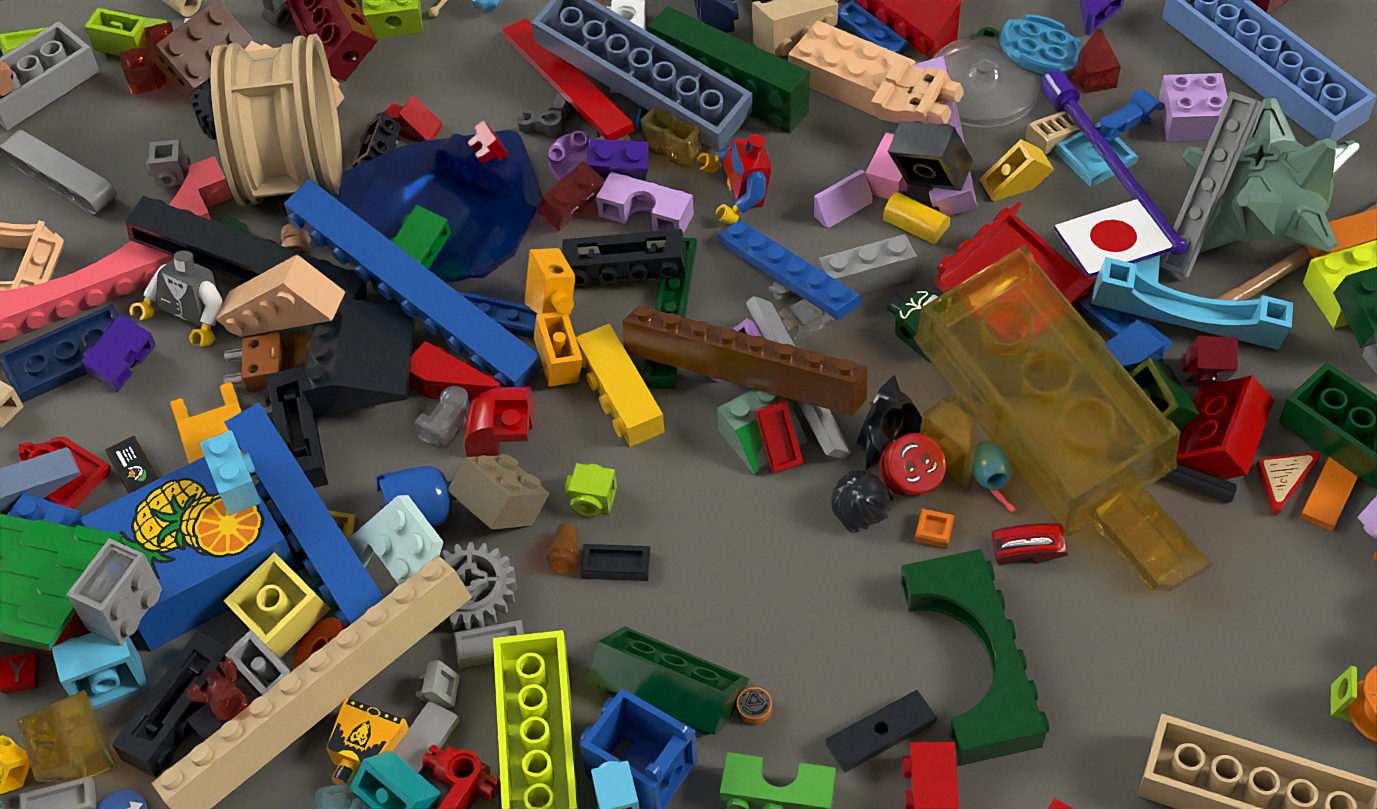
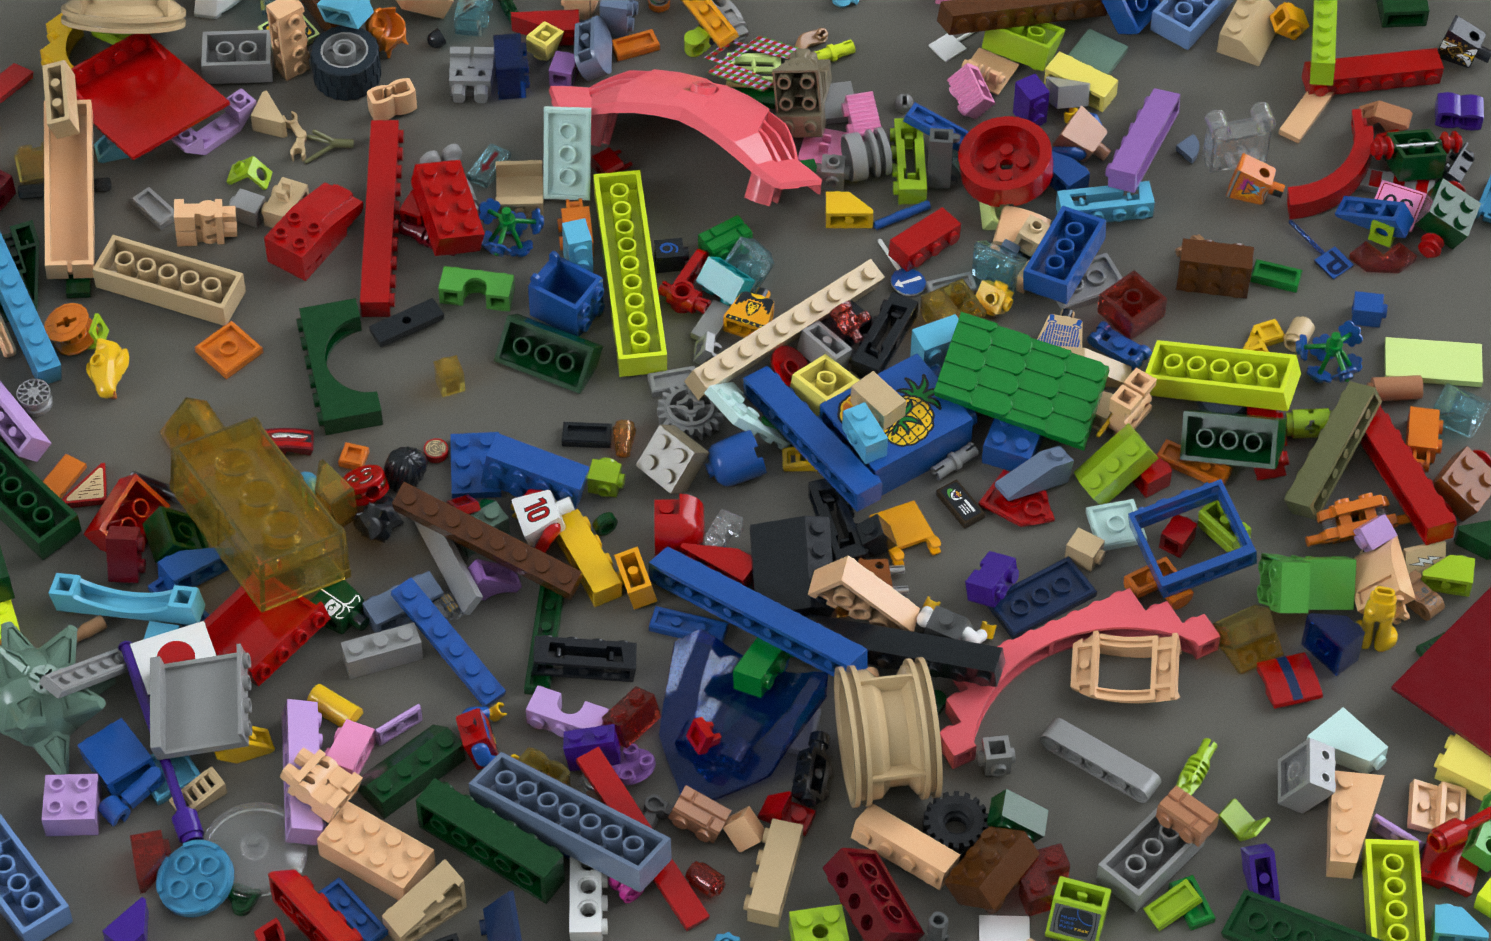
camera: 175 degrees right, 0 degrees up
(115, 592) = (923, 342): light grey piece -> none
(162, 100) = (1018, 813): none -> brick
(203, 523) = (880, 398): none -> tan brick
(246, 394) = (876, 535): none -> black brick
(430, 60) = (774, 872): none -> tan brick
(457, 101) = (744, 829): none -> light nougat panel
(502, 56) = (705, 879): none -> clear red brick
(503, 105) = (699, 815): none -> nougat brick
(549, 282) = (645, 624): light orange torso -> none
(594, 427) = (605, 523): none -> dark green tile
(678, 408) = (540, 516): none -> white torso
(683, 460) = (522, 467): none -> blue brick
(754, 705) = (489, 341): tile -> none
(767, 517) = (467, 465): none -> blue plate
(810, 634) = (449, 375): none -> clear yellow brick
(822, 536) = (436, 450): none -> tile
(823, 151) = (411, 769): none -> dark green slope
(835, 337) = (387, 614): none -> sand blue brick
(930, 155) = (318, 707): black brick -> none
(1073, 171) = (199, 705): none -> light grey panel
(1140, 693) = (229, 349): none -> orange tile
(1153, 149) = (116, 756): none -> blue brick
(1314, 644) = (107, 367): none -> yellow animal

